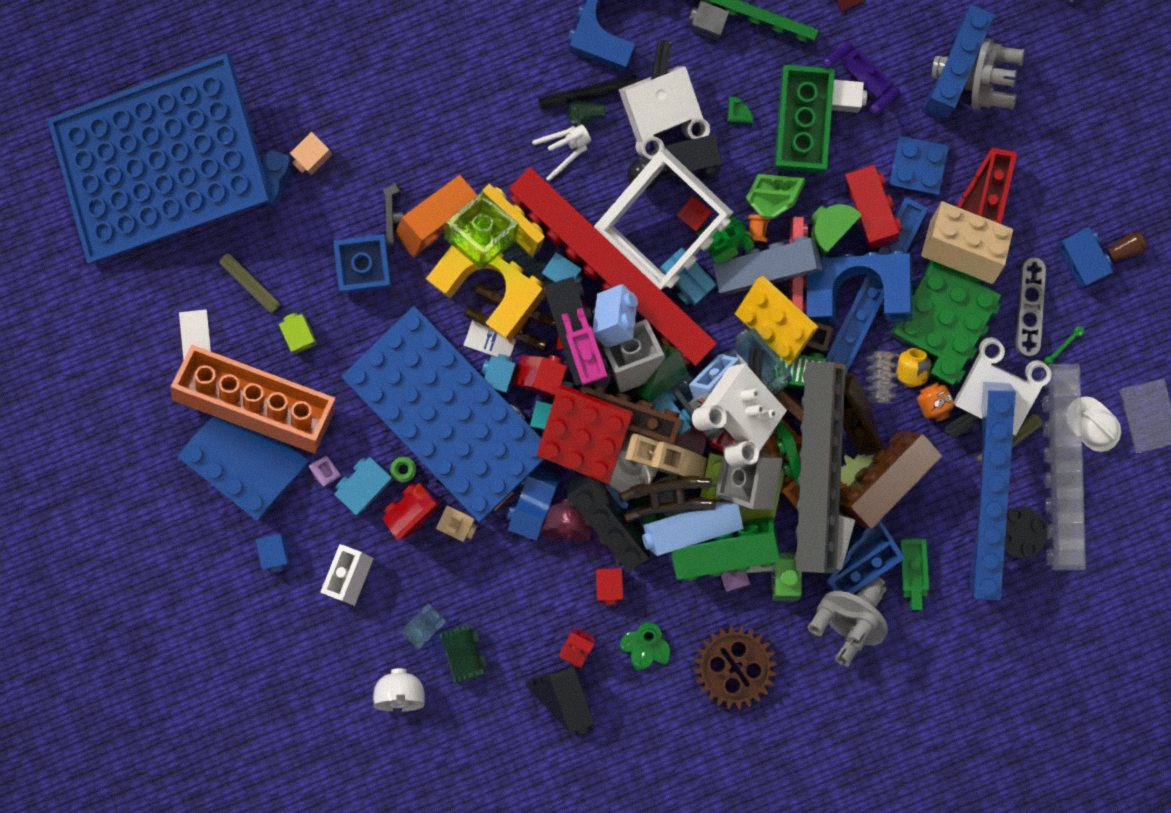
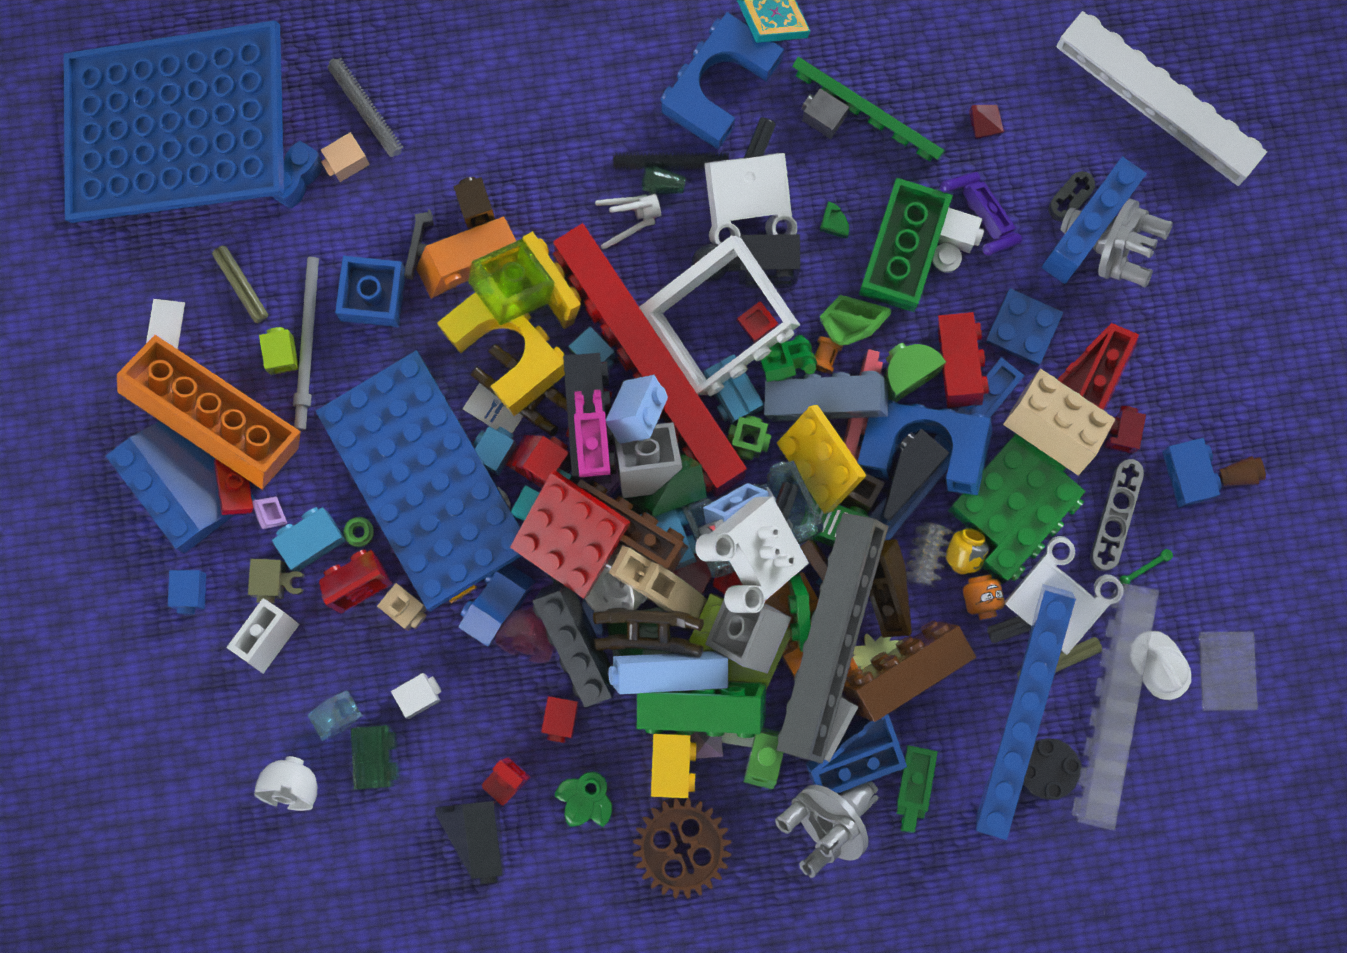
camera: 10 degrees right, 5 degrees down
(290, 460) = (232, 490): none -> red plate
(316, 107) = (364, 108): none -> light grey axle
(327, 368) = (302, 398): none -> light grey bar
(339, 527) = (270, 578): none -> olive brick
(432, 169) = (474, 202): none -> dark brown brick
(486, 593) = (417, 695): none -> white brick
(712, 604) = (671, 766): none -> yellow brick
(713, 305) = (751, 427): none -> bright green brick
(841, 121) = (947, 257): none -> white plate
(853, 310) = (916, 462): none -> black slope
(929, 41) = (1067, 192): none -> pearl dark grey beam
(1024, 234) = (1126, 430): none -> dark red brick

